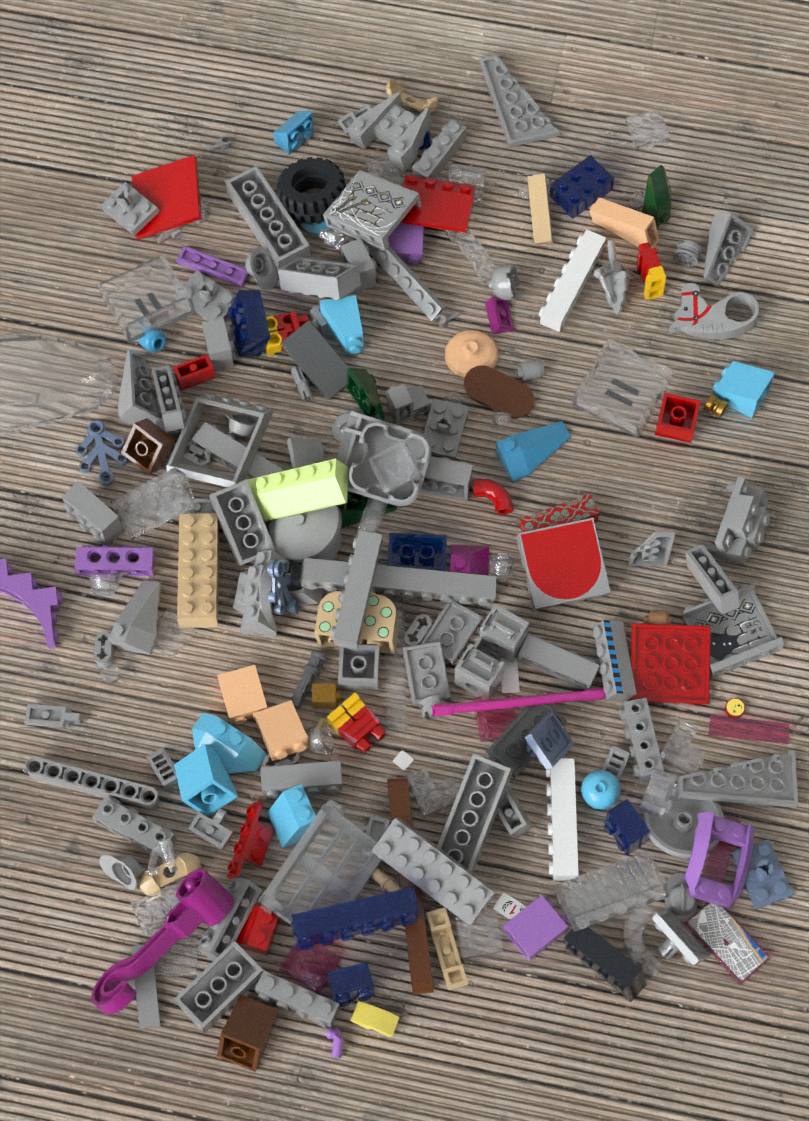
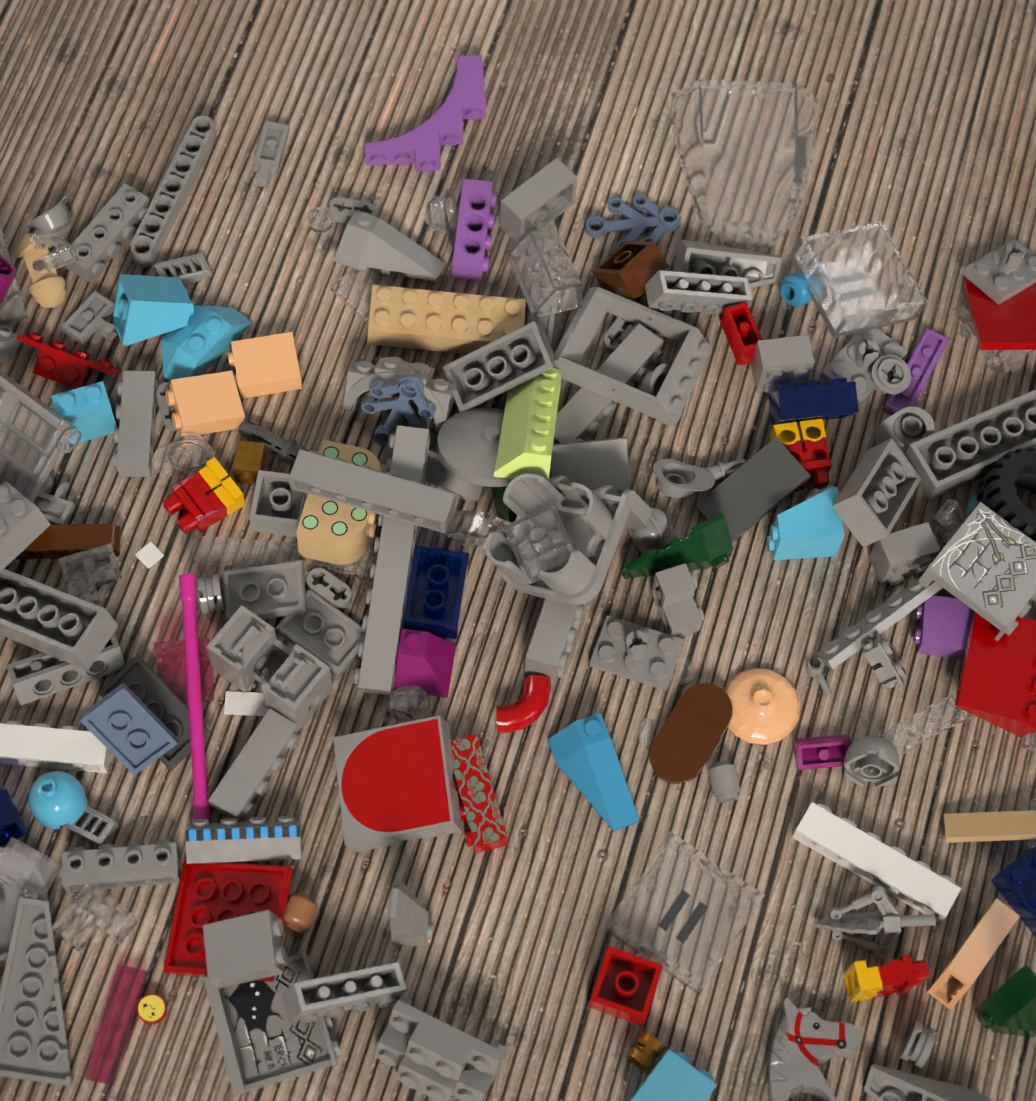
camera: 90 degrees right, 0 degrees up
(215, 273) = (900, 372): none -> light grey gear
(312, 404) = (681, 479): none -> light grey piece
(439, 277) = (881, 651): none -> light grey hinge
(694, 641) = (244, 949): none -> light grey brick

